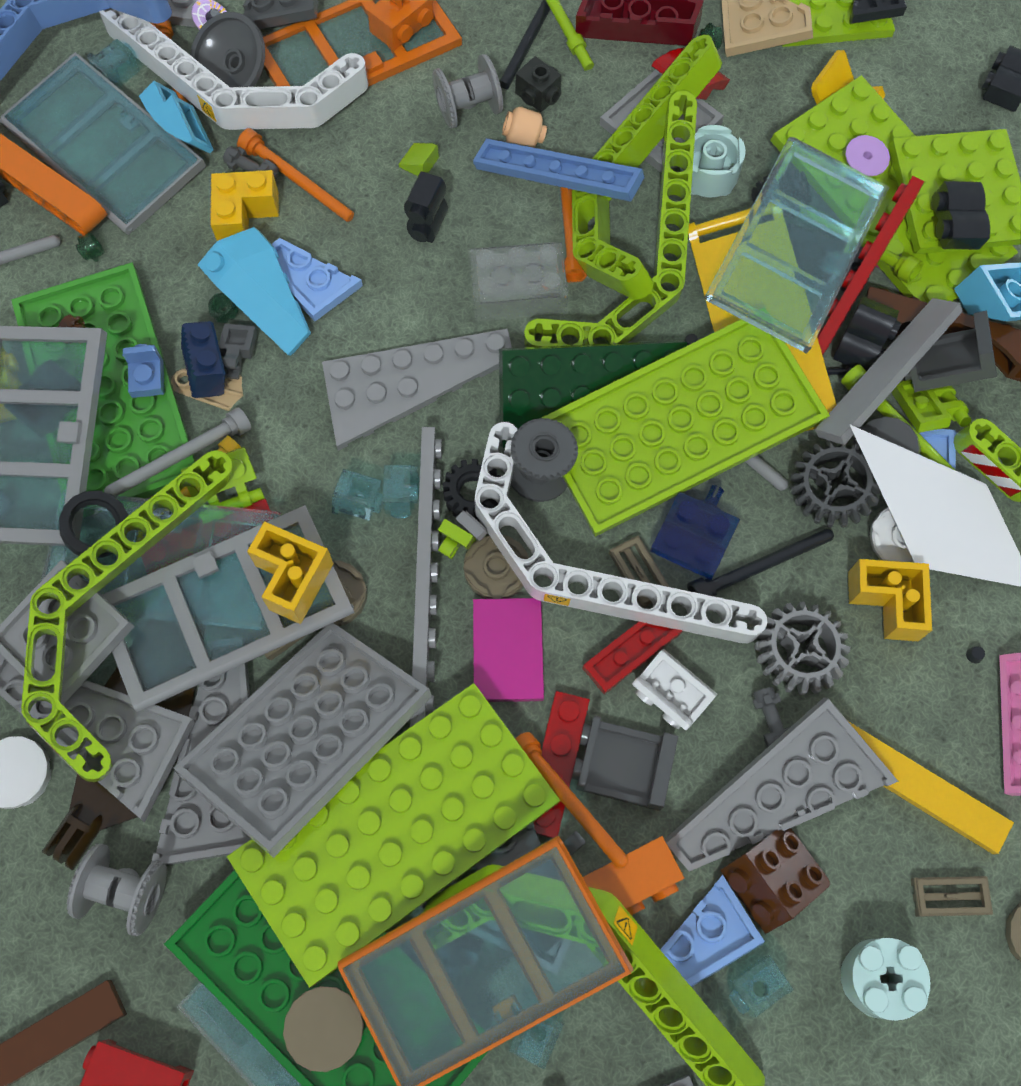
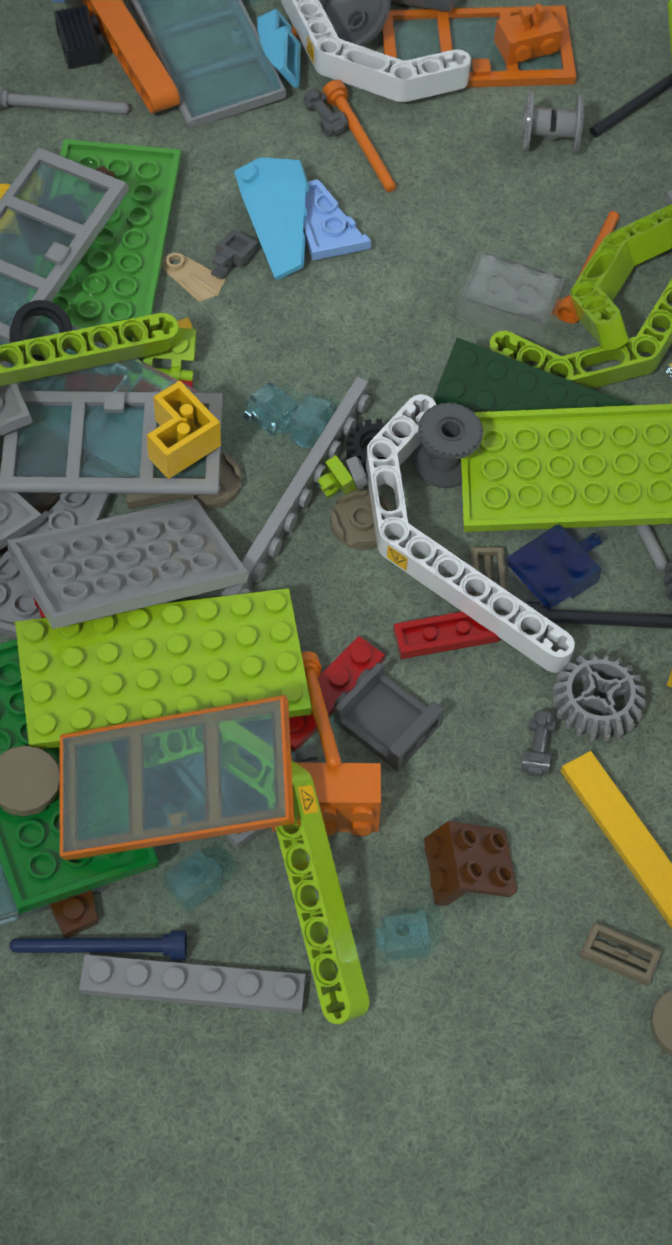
camera: 25 degrees right, 10 degrees down
(89, 247) = (150, 124): clear green plate -> none
(144, 370) = (144, 237): medium blue bracket -> none
(202, 359) = (198, 249): dark blue brick -> none
(216, 305) = (233, 215): clear green plate -> none
(234, 424) = (199, 311): light grey piece -> none
(241, 197) = (302, 133): yellow brick -> none
(393, 383) = (359, 338): light grey wing -> none
(420, 158) = (481, 165): lime slope -> none
(426, 207) = (460, 203): black brick -> none
(508, 649) = (336, 587): dark pink tile -> none
(524, 127) = (589, 174): light nougat head -> none
(538, 84) = (623, 141): pearl dark grey brick -> none
(559, 169) = (597, 217): medium blue plate -> none
(673, 690) = (463, 680): white bracket -> none
(712, 935) = (387, 882): light blue wing -> none
(792, 781) = (529, 791): light grey wing -> none
(907, 985) = (522, 959): light aqua brick -> none

